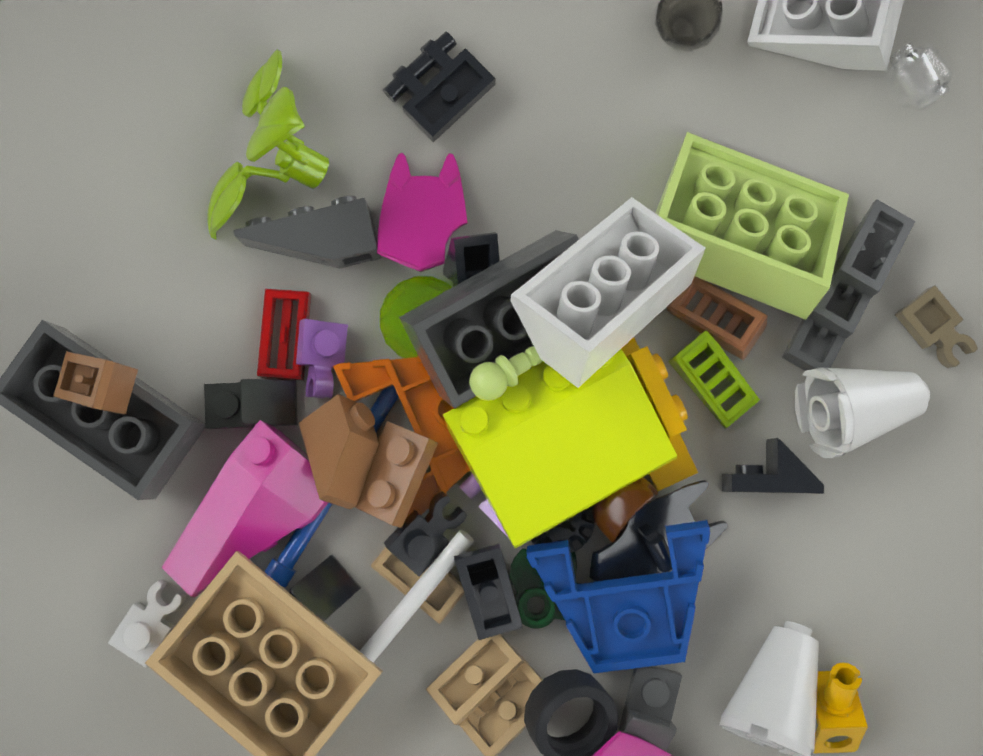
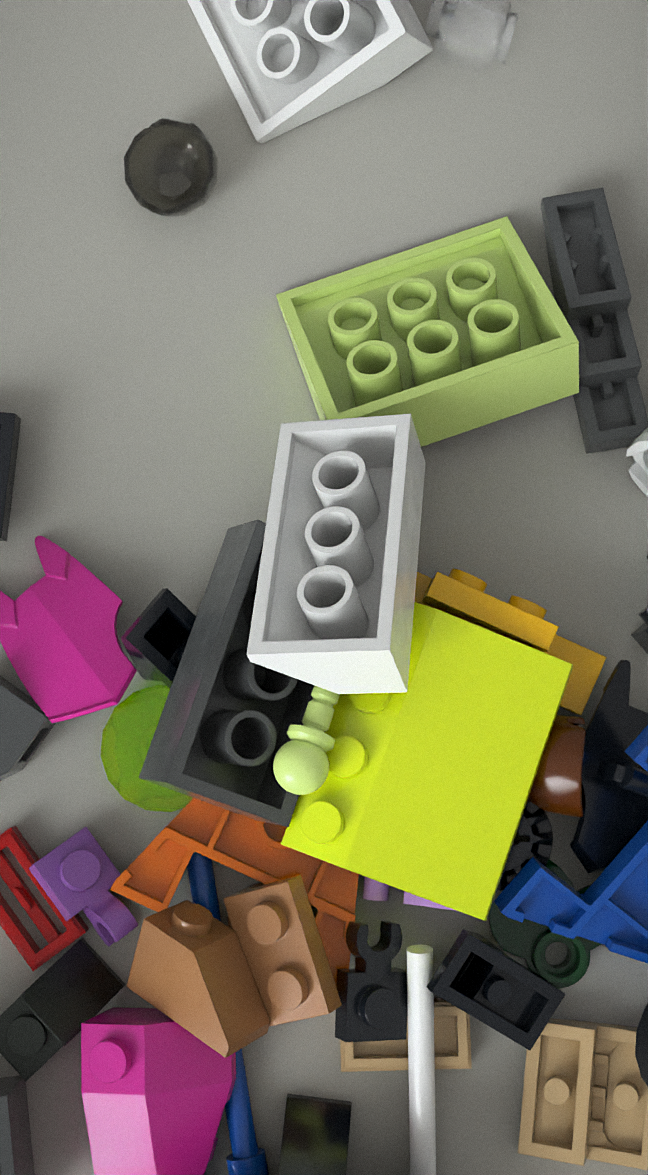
camera: 40 degrees left, 0 degrees up
(716, 356) = (485, 532): lime slope -> none
(741, 313) = (503, 441): nougat slope -> none

